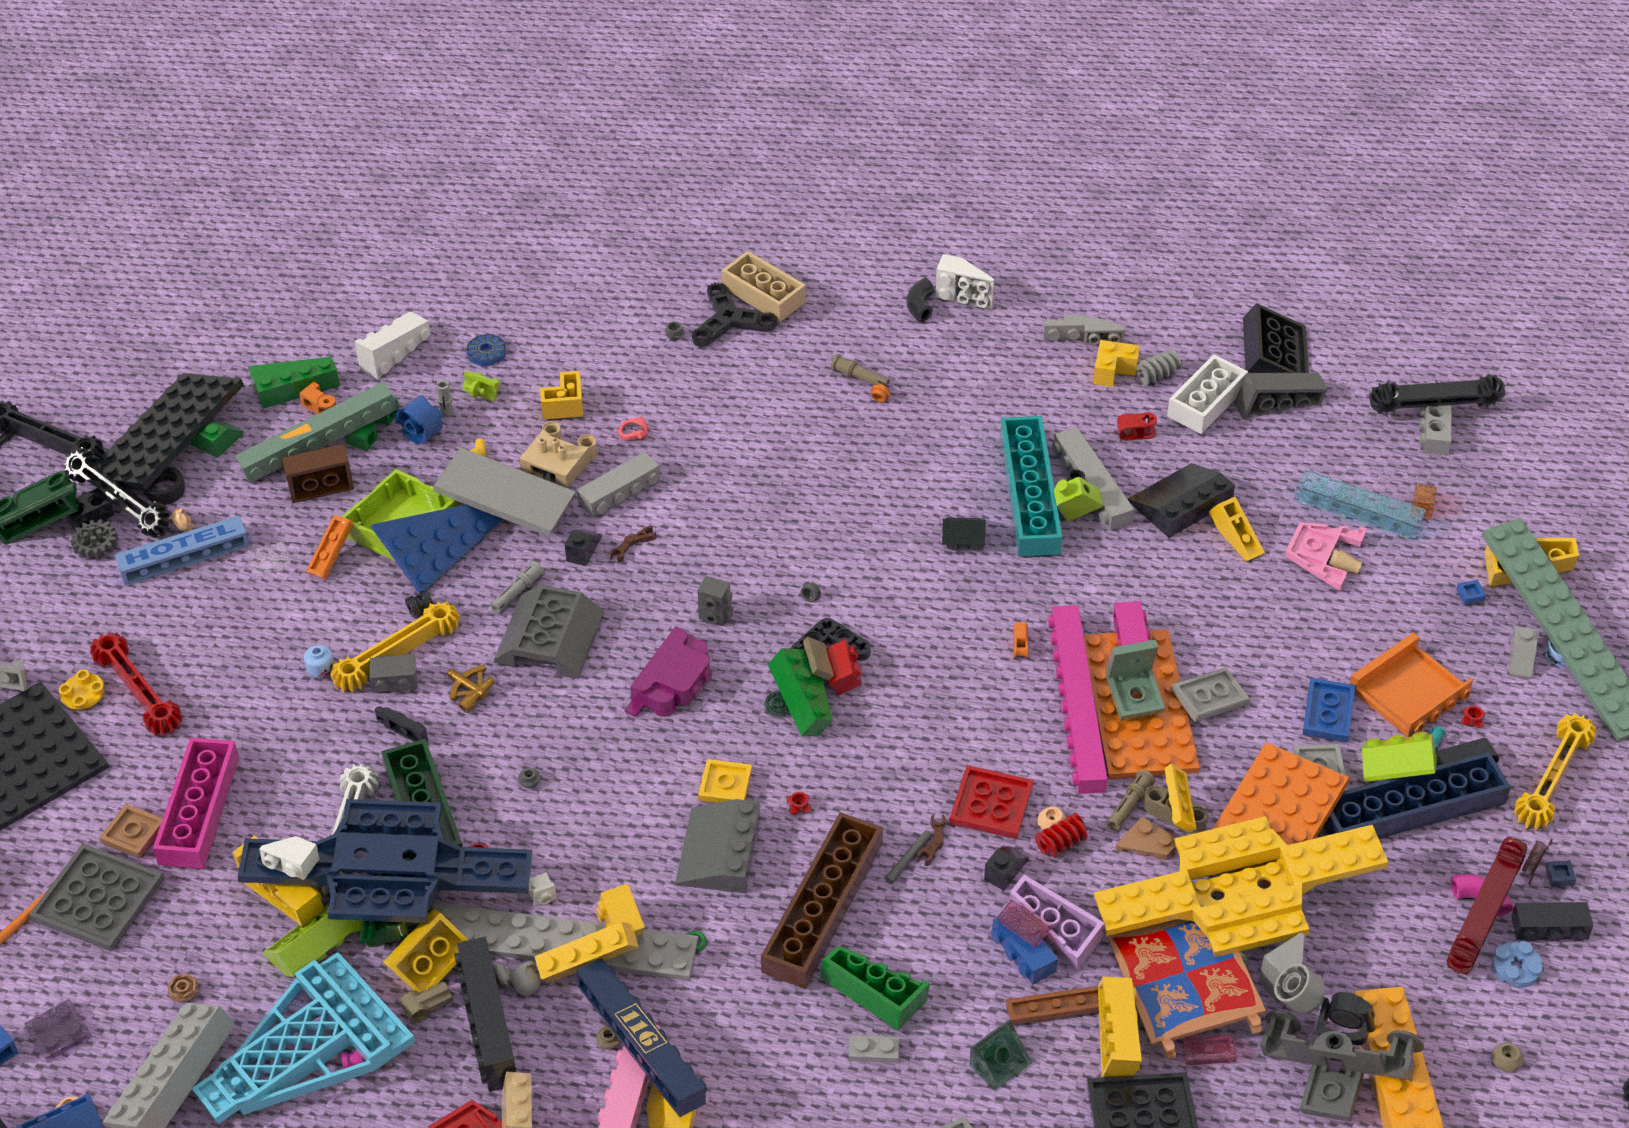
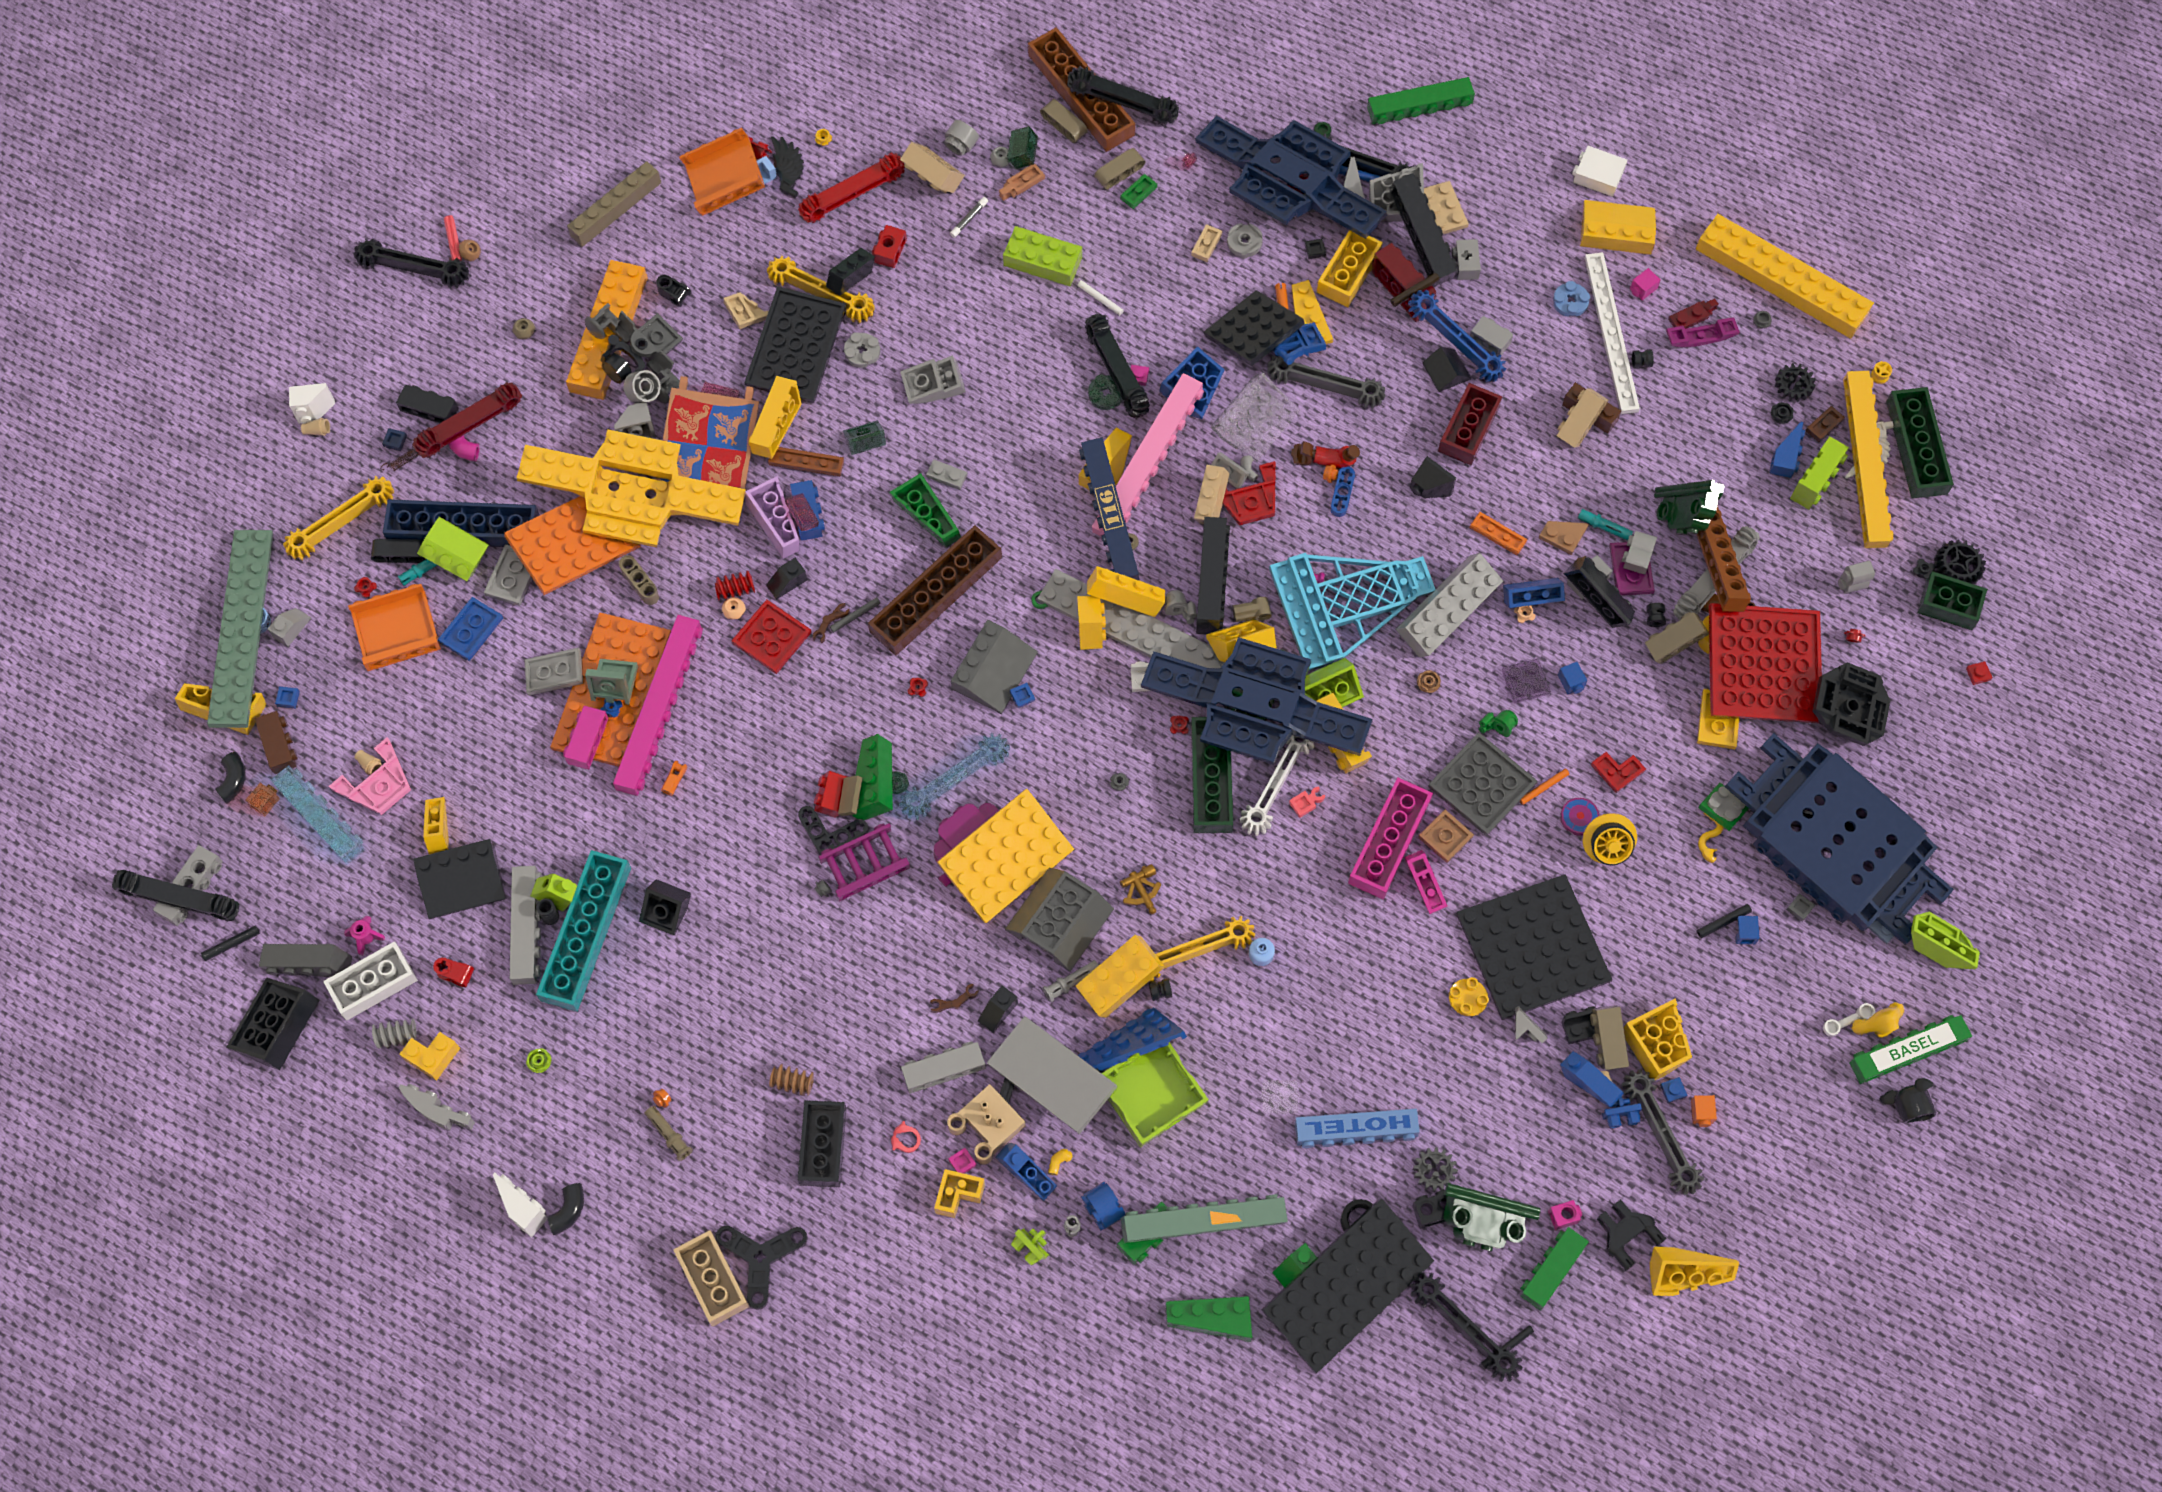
camera: 160 degrees left, 20 degrees up
(80, 966) = (1502, 723): none -> green piece
(118, 492) = (1380, 1172): black arm -> none
(150, 779) = (1425, 881): none -> dark pink slope
(159, 716) = (1421, 985): red arm -> none
(181, 520) = (1350, 1164): light nougat plate -> none
(291, 856) = (1328, 713): white slope -> none
(307, 816) = (1305, 803): none -> coral plate
(316, 400) = (1189, 1275): orange leg -> none
(318, 473) = (1215, 1169): reddish brown brick -> none
(330, 547) = (1223, 1076): orange tile -> none
(391, 344) = (1100, 1332): white wedge -> none
(393, 673) = (1202, 915): dark grey brick -> none
(401, 724) = (1209, 866): black hinge -> none
(462, 588) = (1120, 976): none -> yellow brick
(486, 341) = (1014, 1312): tile -> none
(510, 434) = (1025, 1170): none -> blue slope
(571, 425) = (962, 1161): none -> dark pink plate
(626, 661) = (1005, 855): none -> yellow plate
(673, 827) = (1022, 695): none -> blue plate
(674, 330) = (819, 1253): dark grey plate -> none
(687, 761) = (954, 776): none -> clear light blue arm
(709, 396) = (822, 1143): none -> black brick
(715, 601) = (910, 891): dark grey brick -> none
(724, 781) = (967, 722): yellow plate -> none
(762, 434) = (791, 1080): none -> medium nougat piece
(772, 604) = (880, 872): none -> magenta fence
(1012, 389) = (534, 1056): none -> lime plate
(1134, 793) = (658, 606): dark tan pin -> none
(1147, 840) = (672, 568): medium nougat wing -> none
(1180, 798) = (635, 570): yellow plate -> none
(1243, 429) = (363, 933): none -> dark pink brick
(1362, 394) = (230, 943): none -> black piece
(1449, 549) = (276, 741): none -> reddish brown brick
(1466, 511) = (234, 777): none -> black cylinder
(1523, 953) = (467, 379): medium blue plate -> none

